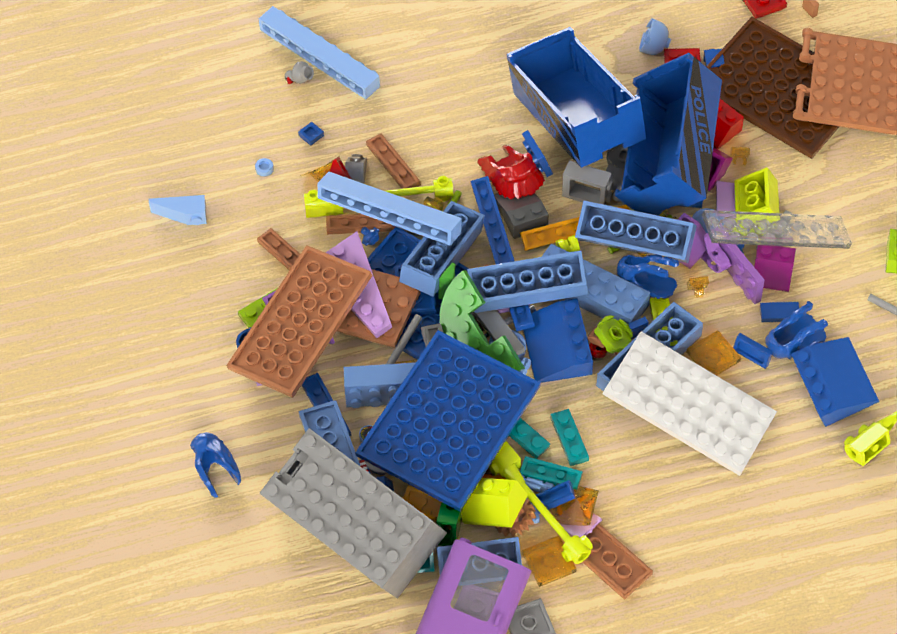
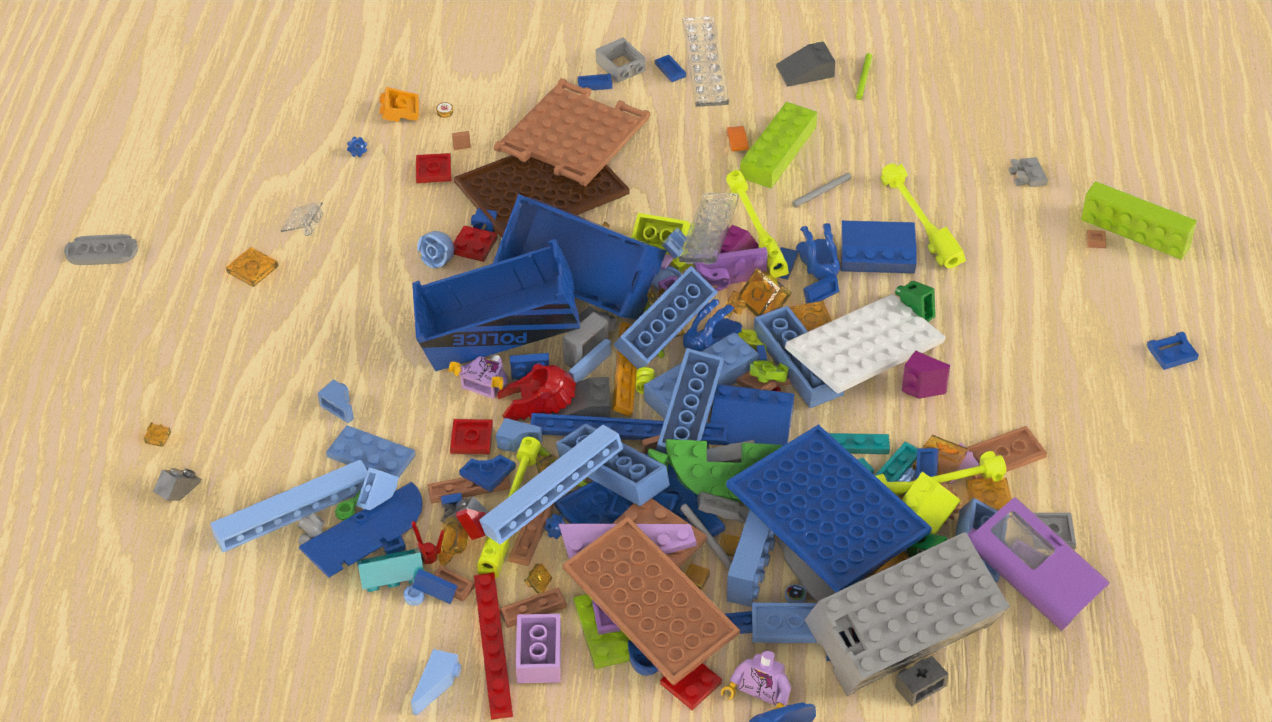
camera: 70 degrees left, 10 degrees down
(233, 237) = (493, 646): none -> red plate
(234, 265) = (538, 648): none -> lavender brick
(243, 390) = (694, 686): none -> red plate
(258, 435) = (762, 679): none -> lavender torso
(270, 174) = (434, 586): none -> blue tile
(280, 140) = (389, 569): none -> slope
(285, 187) = (464, 585): none -> nougat tile
(307, 554) = (921, 680): none -> flat silver brick
(308, 158) = (428, 550): none -> red plant
(309, 239) = (538, 578): none -> clear yellow tile
(322, 114) = (364, 531): none -> blue door
(330, 89) = (347, 508): none -> bright green plate
(357, 99) = (376, 488): none -> light blue slope
(360, 355) = (698, 575): none -> clear yellow tile
(368, 155) = (450, 499): none -> blue tile
(399, 84) = (371, 450): none -> medium blue plate
(408, 169) = (487, 473): none -> blue tile
(444, 37) = (335, 399): none -> medium blue arch
(446, 144) = (471, 436): none -> red plate
(458, 170) = (512, 432): none -> medium blue arch
(515, 123) = (481, 375): none -> lavender torso
(566, 197) = (591, 361): none -> light blue tile
(666, 461) = (925, 376): none -> magenta slope
(714, 201) = (674, 243): none -> medium blue slope
(724, 305) = (763, 293): none -> clear yellow slope
(777, 426) = (919, 298): none -> green torso
(781, 291) = (774, 256): none -> neon yellow bar

